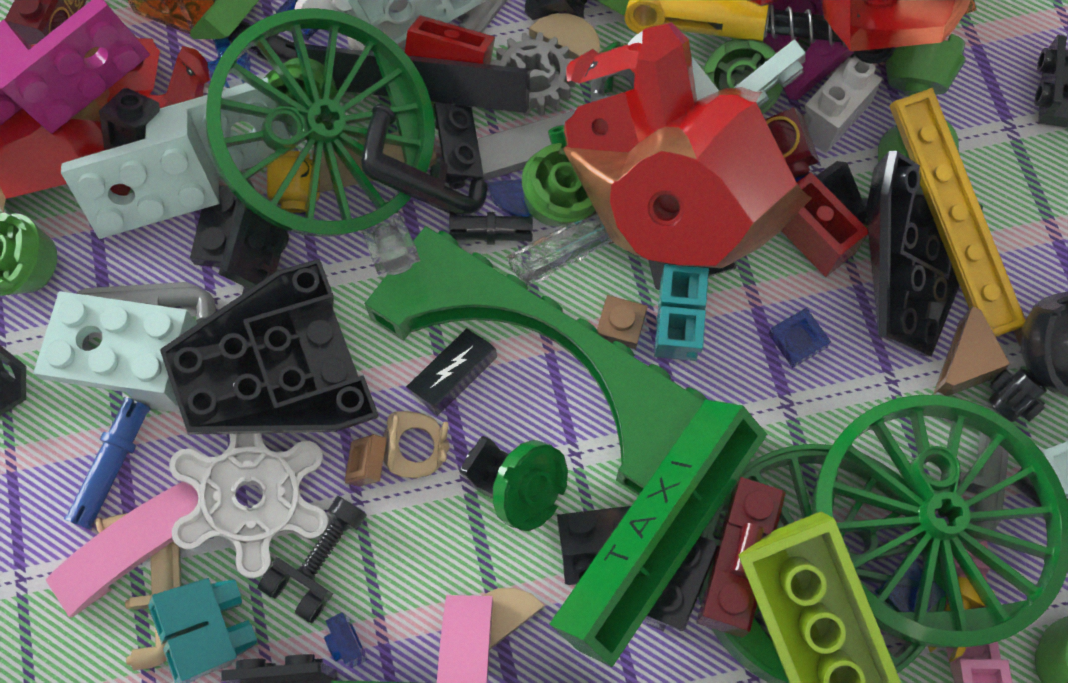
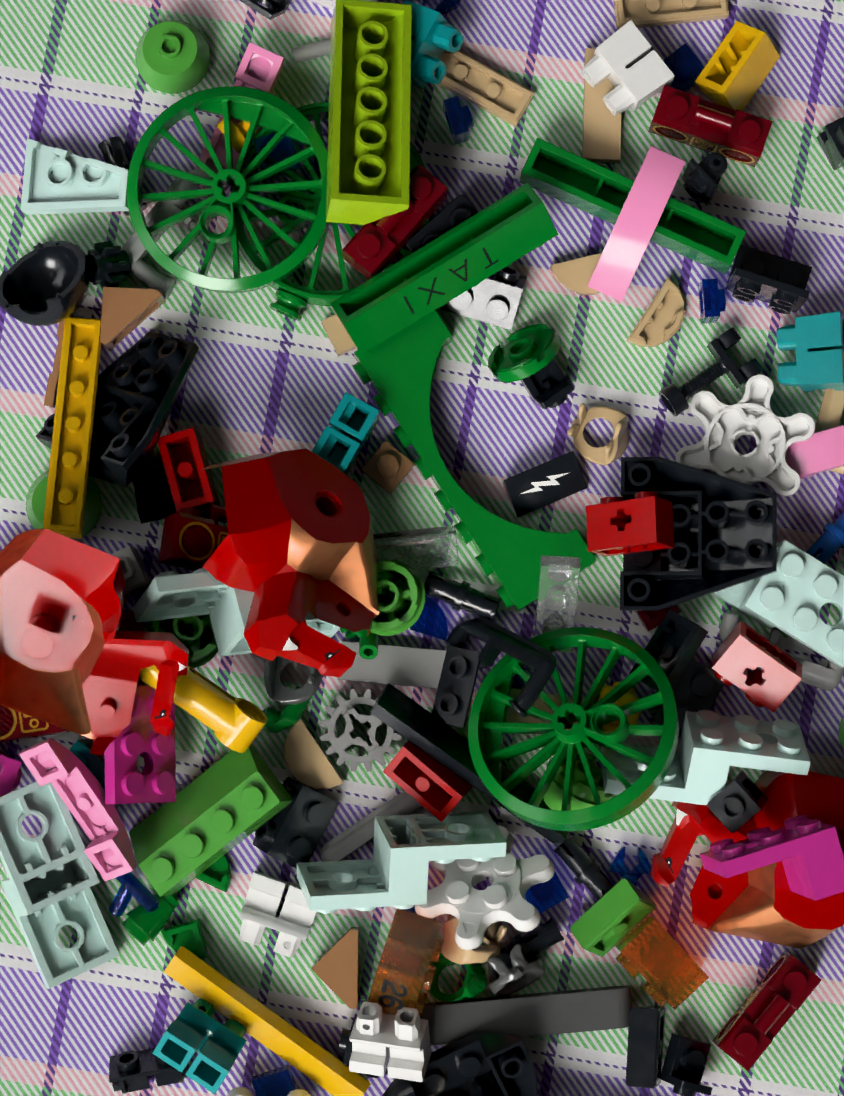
camera: 160 degrees left, 15 degrees up
(159, 272) = (749, 649): none -> brick
(340, 347) = (630, 525): none -> red brick
(365, 460) = (643, 433): medium nougat tile -> none
(395, 602) = (661, 318): none -> tan tile
(799, 337) = (251, 388): clear blue plate -> none
(806, 433) = (288, 305): none -> green bush

